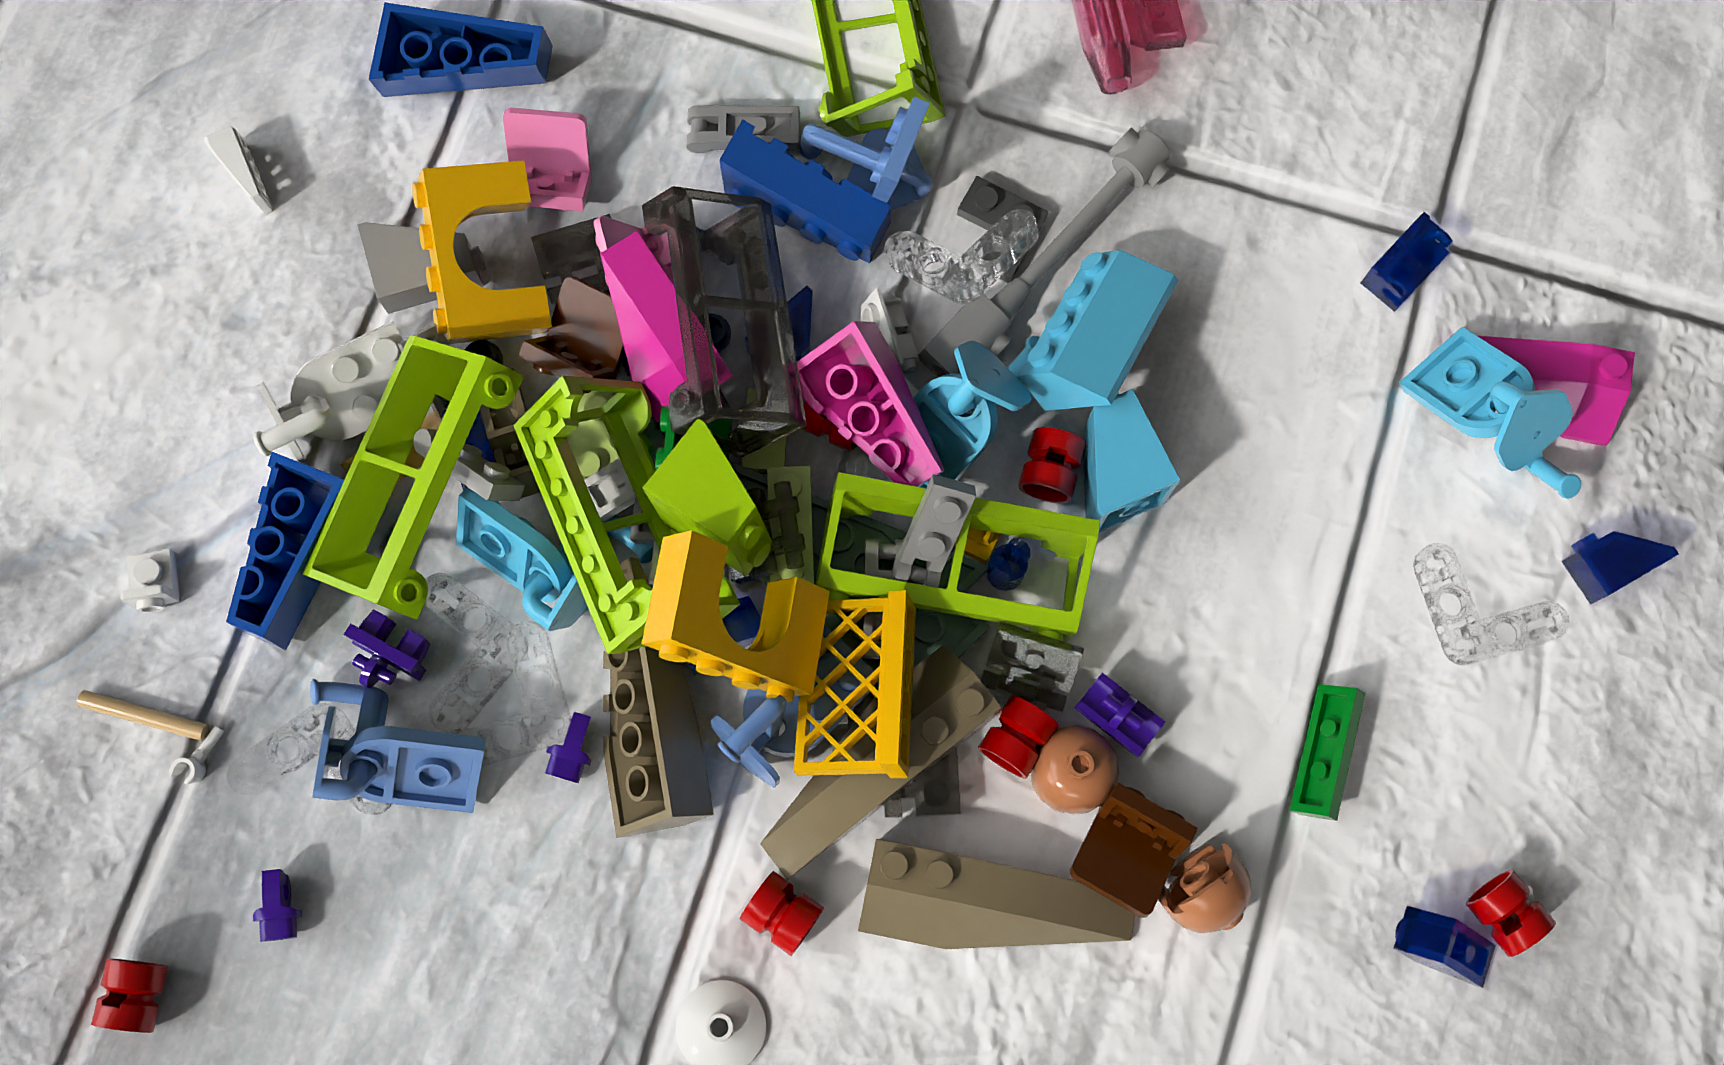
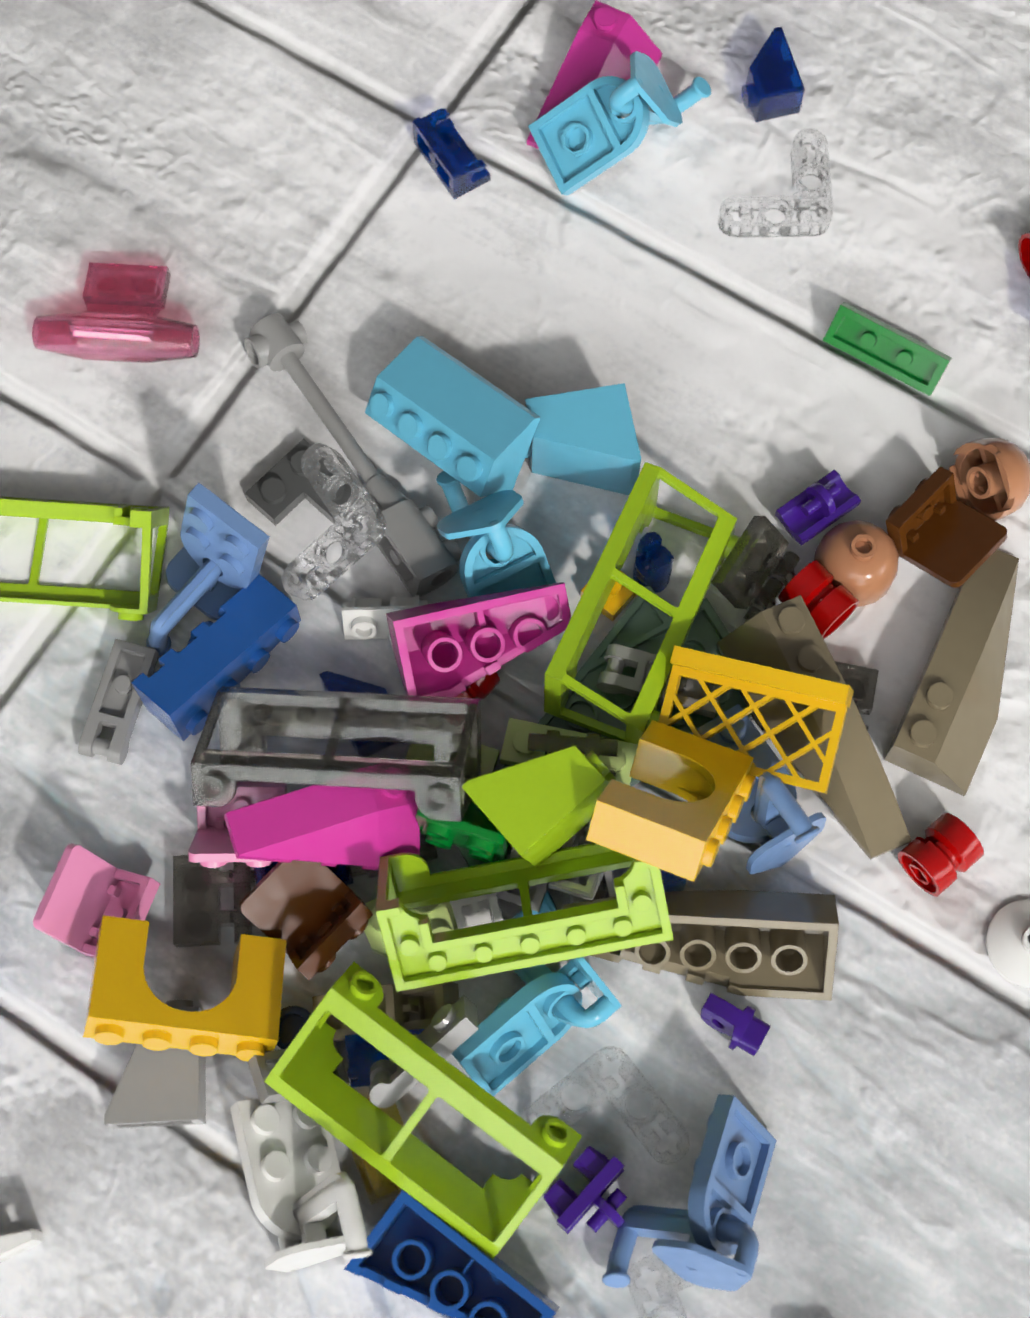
camera: 75 degrees left, 5 degrees down
(534, 705) = (684, 1049): clear beam -> none
(933, 531) = (622, 608): light grey plate -> none
(1053, 458) = (561, 499): red wheel -> none

